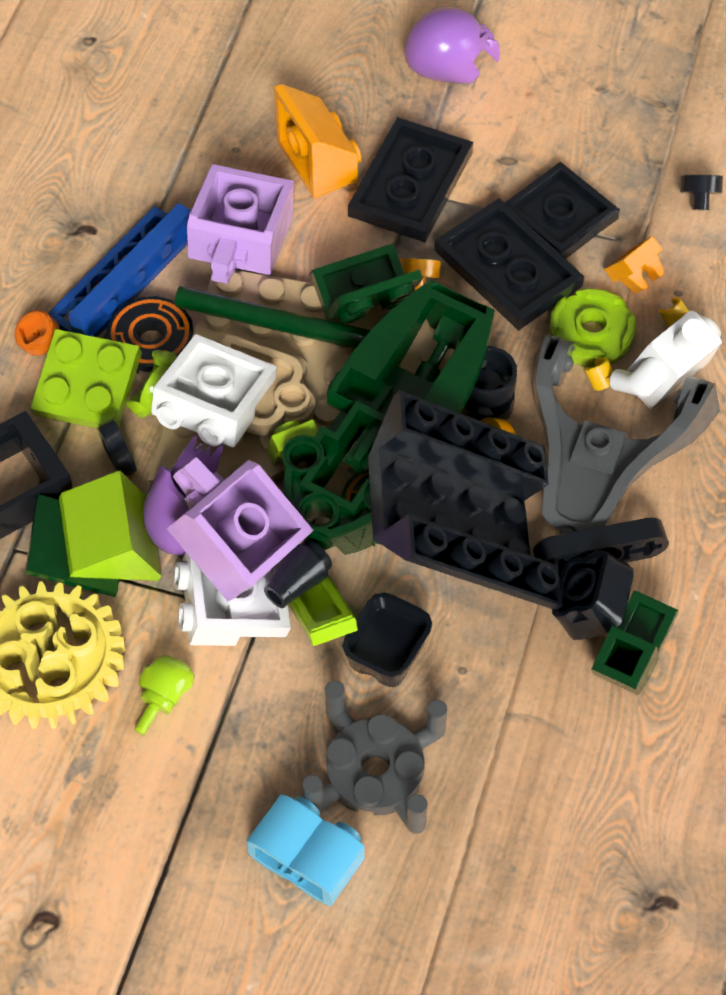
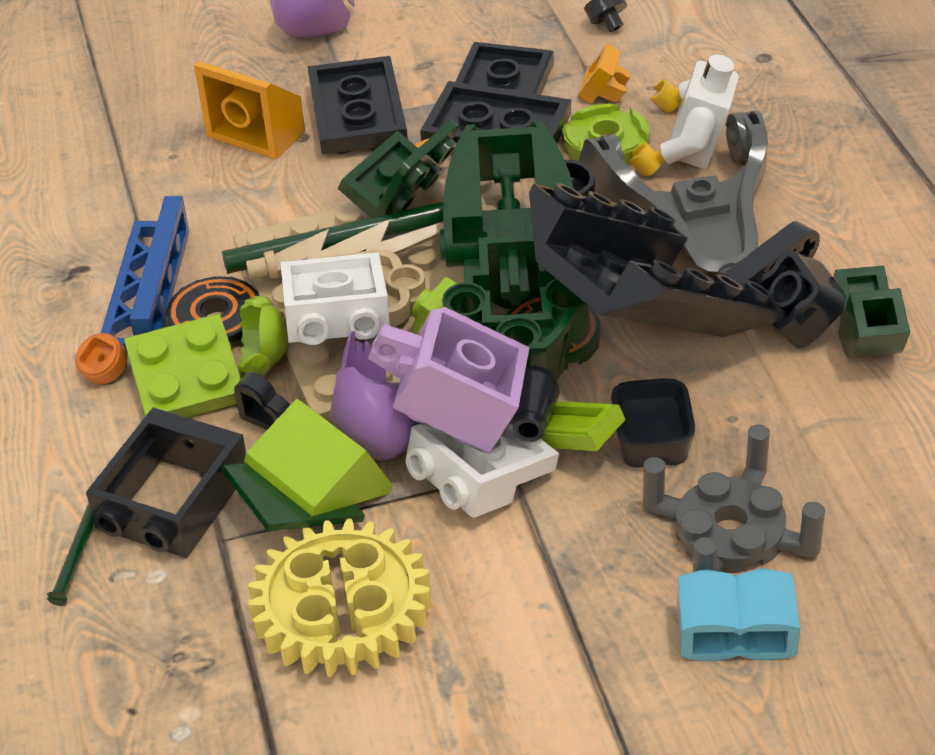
camera: 30 degrees left, 15 degrees down
(163, 687) = (478, 563): lime piece -> none
(239, 221) = (235, 186): lavender hinge -> none
(246, 325) = (365, 241): none -> tan piece

